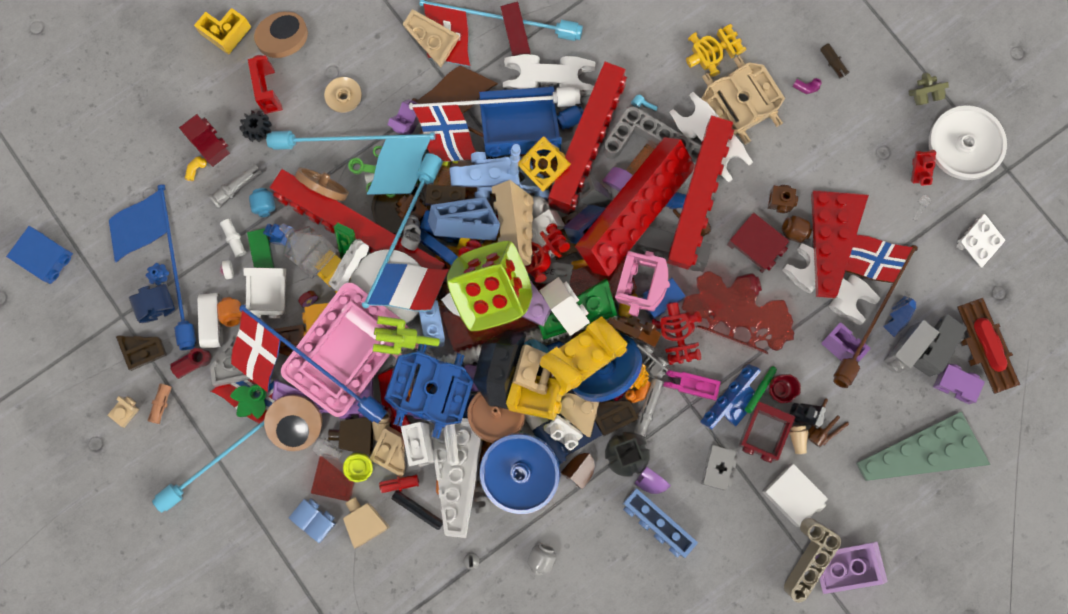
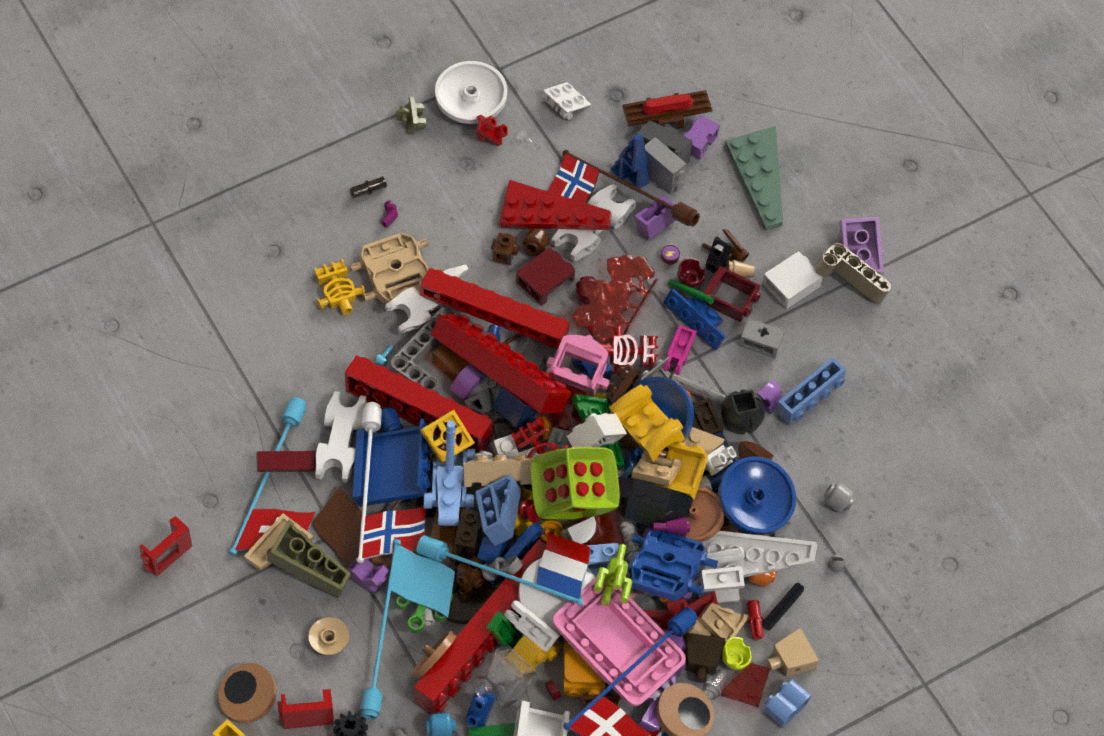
camera: 90 degrees left, 20 degrees down
(409, 60) = (308, 561): none -> olive wedge
(474, 395) = (677, 526): none -> magenta cone
(807, 366) = (670, 254): none -> tile

